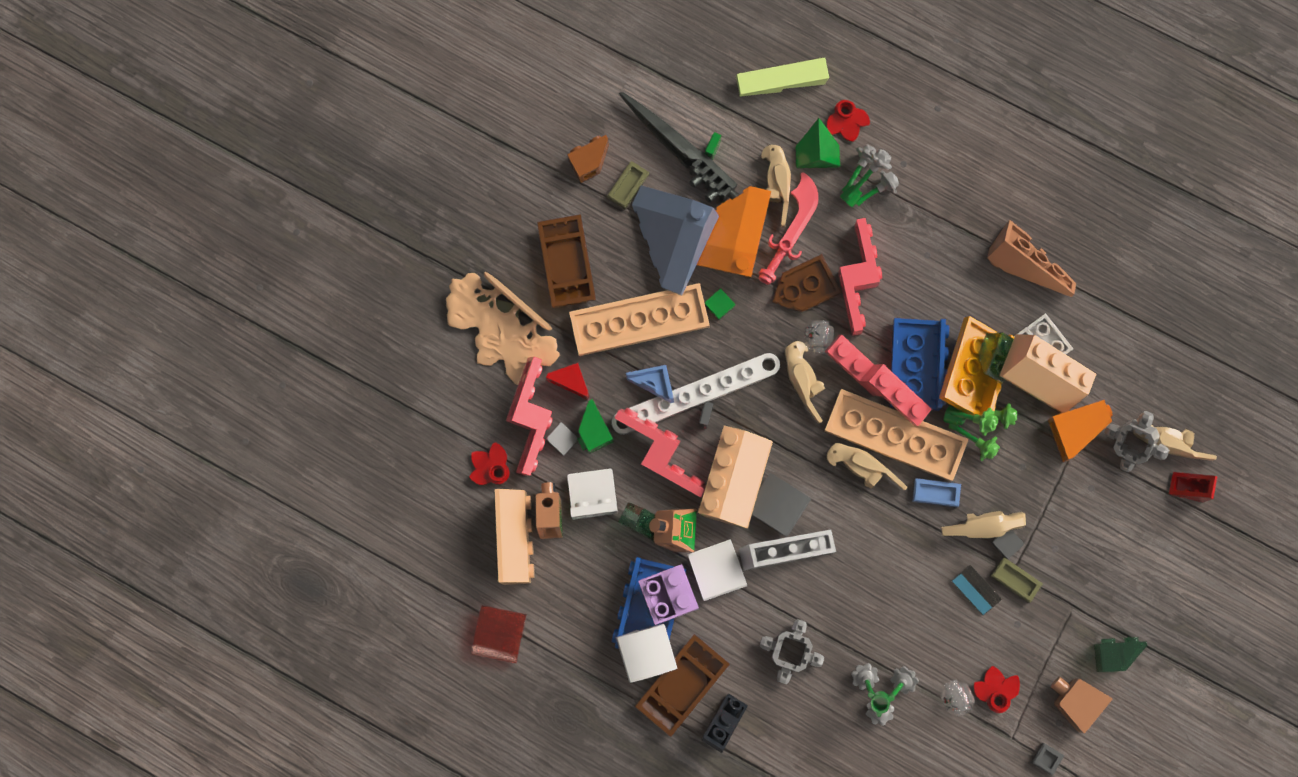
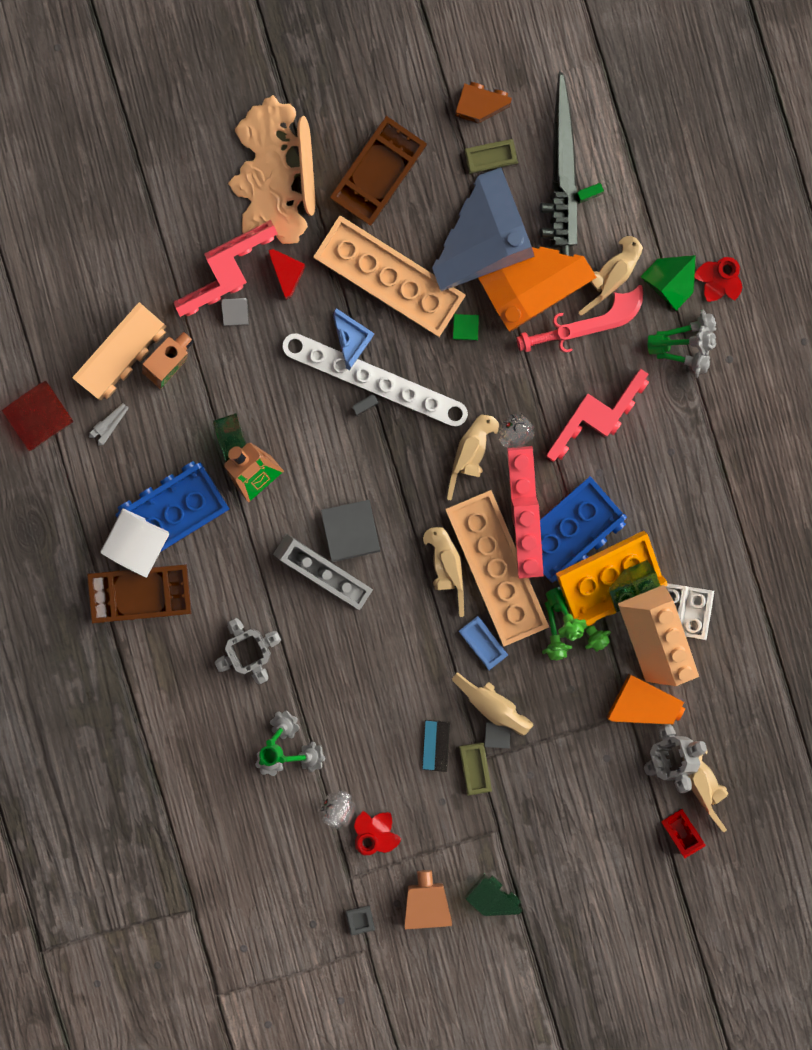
camera: 40 degrees right, 10 degrees up
(488, 463) = (158, 273): red plate -> none
(551, 596) = (107, 426): none -> light grey piece
(592, 494) = (215, 378): white bracket -> none
(593, 430) = (266, 328): green slope -> none
(661, 451) = (300, 399): coral bracket -> none
(668, 594) = (194, 516): lavender slope -> none
(717, 570) = (253, 533): white slope -> none
(724, 723) = (141, 653): black slope -> none
(735, 477) = (338, 476): light nougat slope -> none
(781, 77) = (704, 191): yellowish green slope -> none
(806, 285) = (549, 380): reddish brown tile -> none
(1020, 258) = (740, 528): nougat wedge -> none

